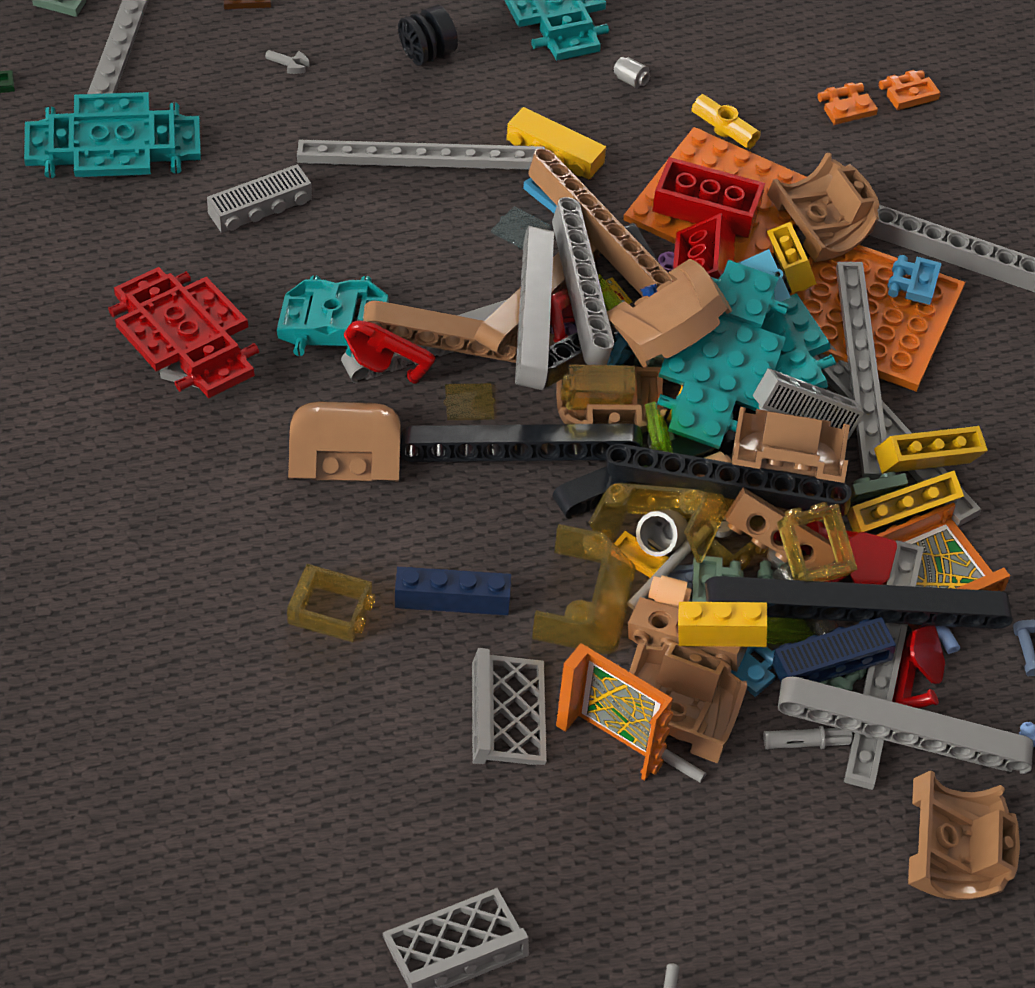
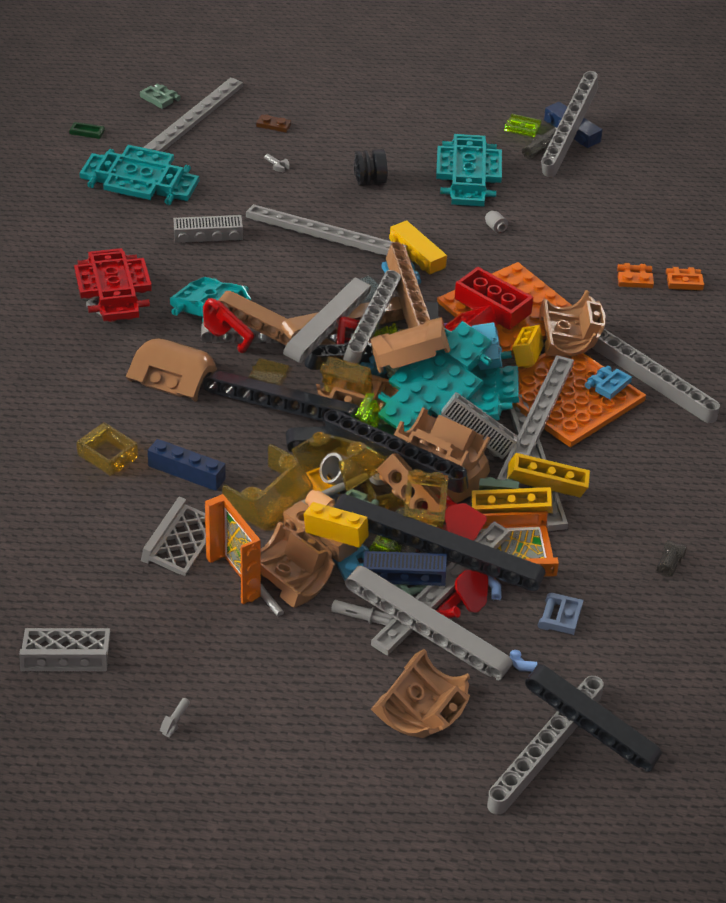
camera: 25 degrees right, 10 degrees down
(726, 121) = (541, 264): yellow piece -> none

